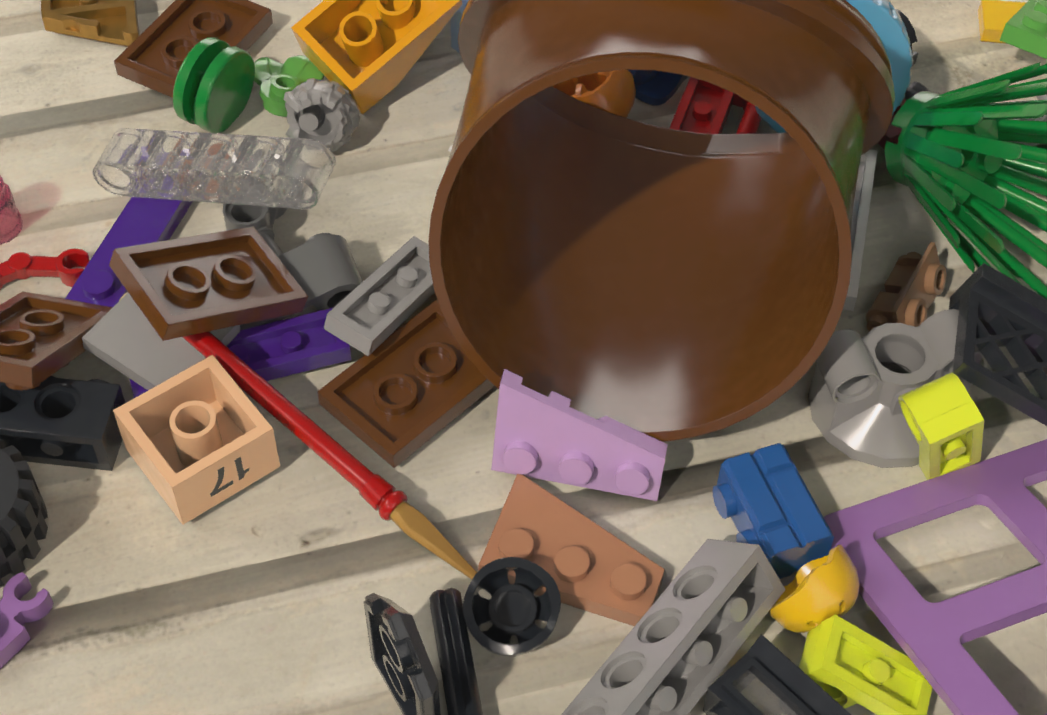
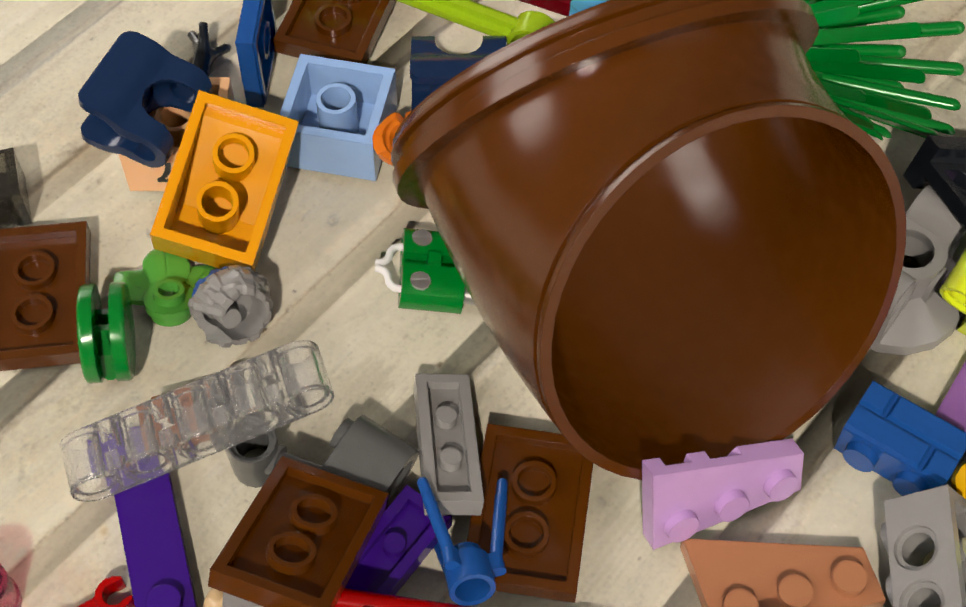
camera: 35 degrees left, 5 degrees up
(320, 376) = (466, 566): none -> blue plant

